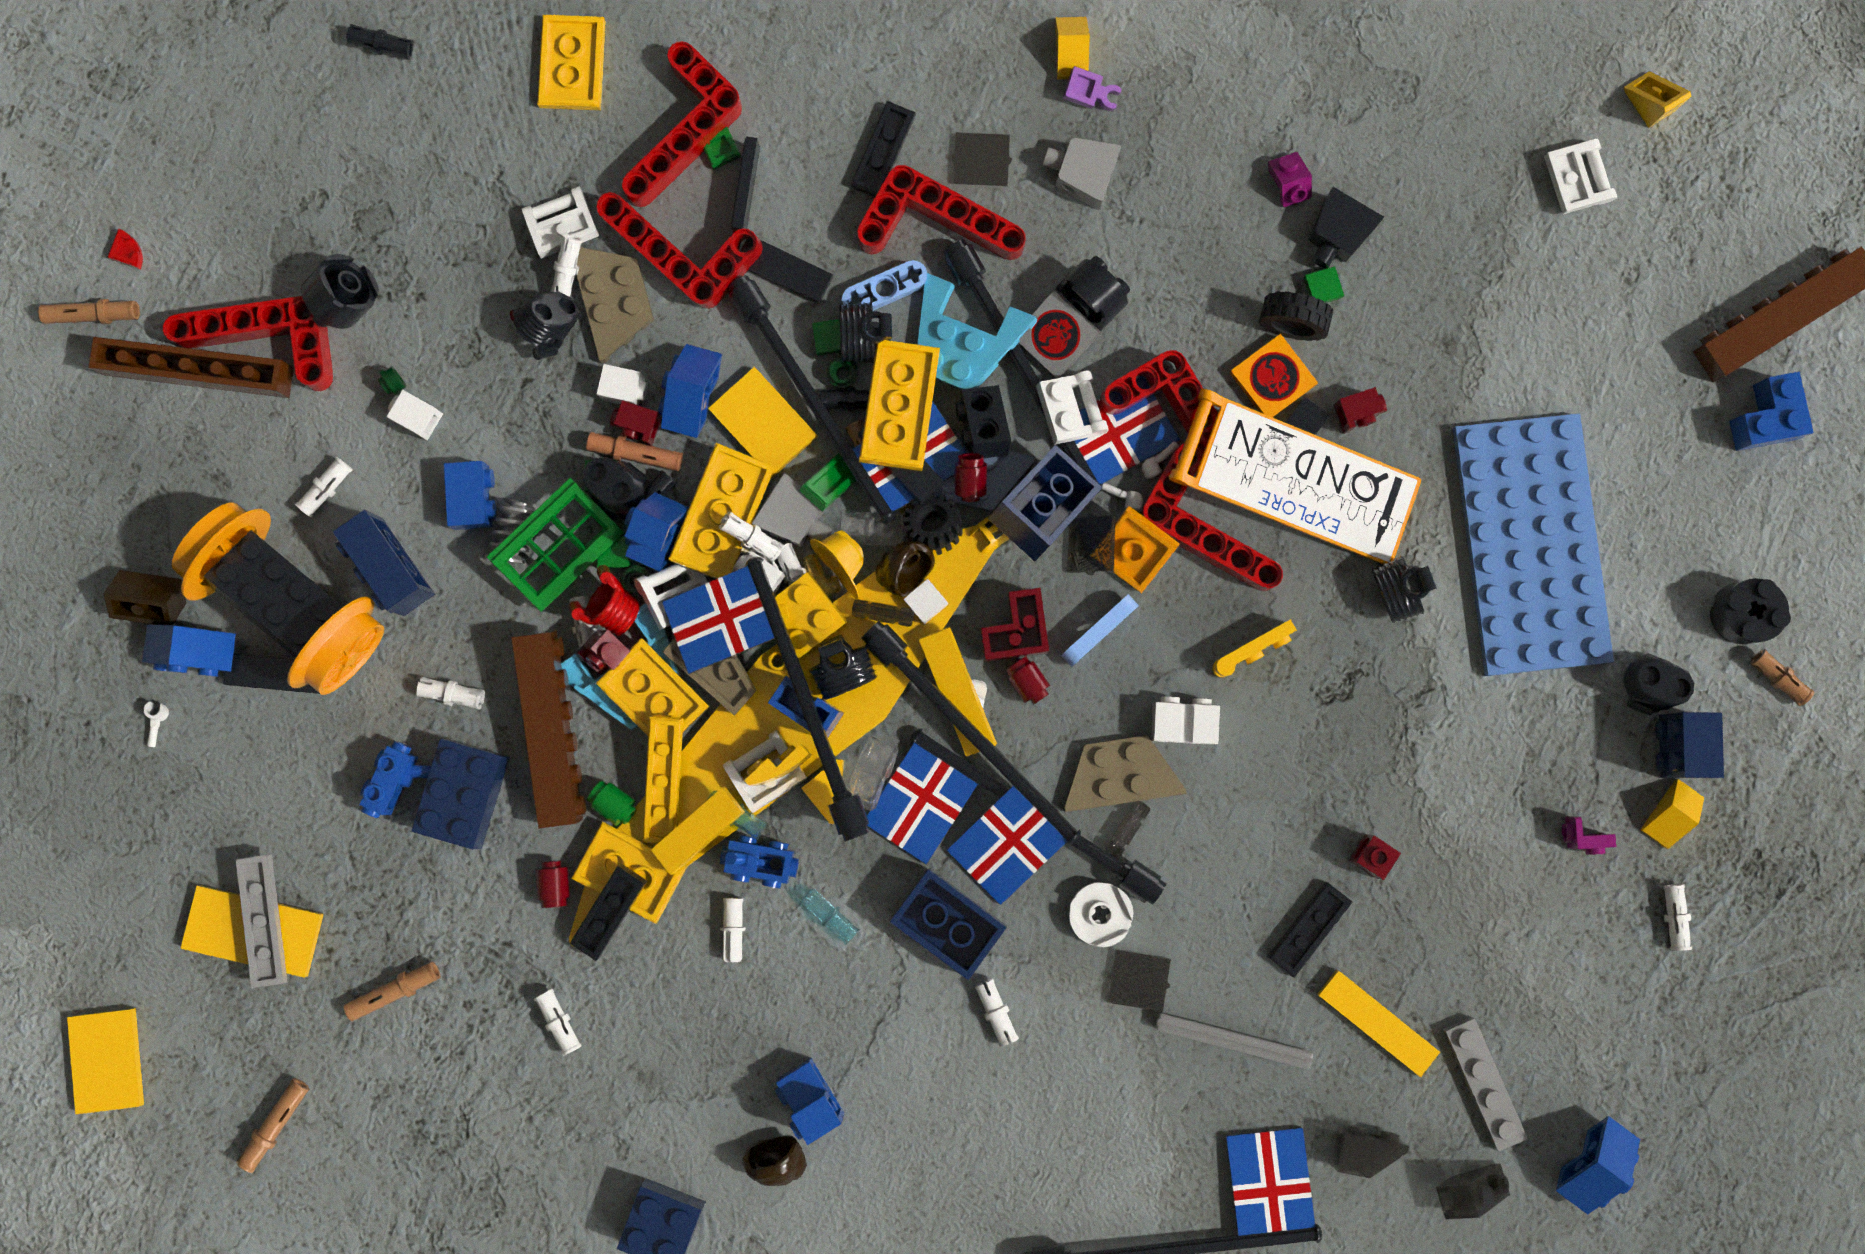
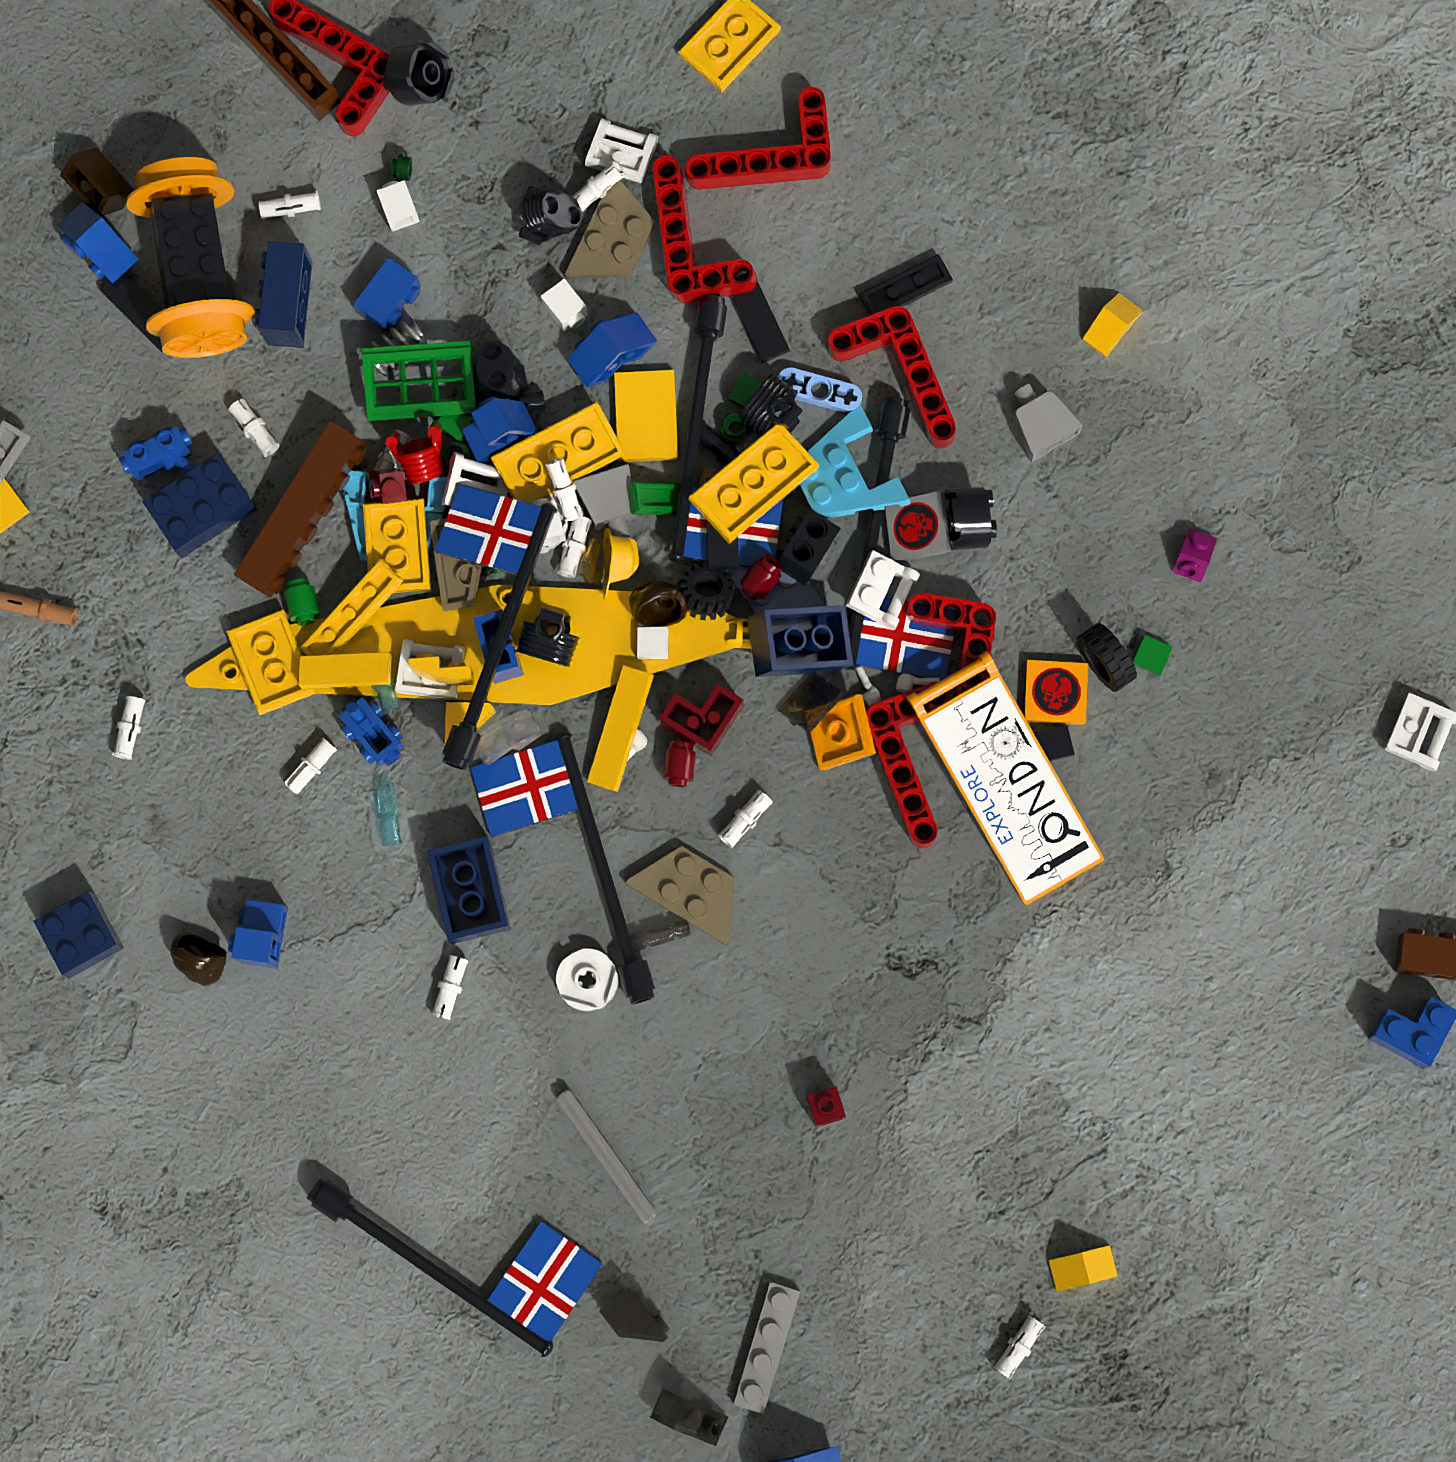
camera: 45 degrees right, 5 degrees down
(154, 721) = (29, 275): white hand -> none
(552, 884) = (209, 625): dark red brick -> none
(608, 912) = (232, 676): black tile -> none
(634, 451) = (526, 350): nougat pin -> none
(636, 422) = (553, 340): dark red brick -> none
(721, 149) = (786, 192): green tile -> none
(745, 184) = (780, 232): black tile -> none
(808, 614) = (557, 581): yellow plate -> none
(883, 612) = (614, 625): clear smoke axle -> none
(981, 159) = (973, 353): clear smoke piece -> none
(1020, 827) = (579, 865): flag -> none
(1086, 89) = (1094, 363): medium lavender plate -> none
(1099, 630) = (764, 771): light blue beam -> none
(1116, 681) = (745, 818): none -> white pin
(1138, 980) = (574, 1053): clear smoke piece -> none
(1185, 722) = (769, 890): white brick -> none
(1252, 650) = (866, 879): yellow plate -> none
(1309, 929) = (733, 1122): black tile -> none
(1341, 227) = (1201, 622): black torso -> none
(1359, 409) = (1100, 767): dark red brick -> none
(1378, 1023) = (725, 1234): yellow tile -> none
(1392, 585) = (1008, 925): black piece -> none
(1532, 545) = (1147, 978): medium blue plate -> none
(1592, 843) = (999, 1235): magenta bracket -> none
(1656, 684) = (1148, 1156): black piece -> none
(1690, 745) = (1134, 1221): dark blue brick -> none
(1767, 608) = (1285, 1154): black brick -> none
(1782, 677) = (1254, 1235): medium nougat pin -> none

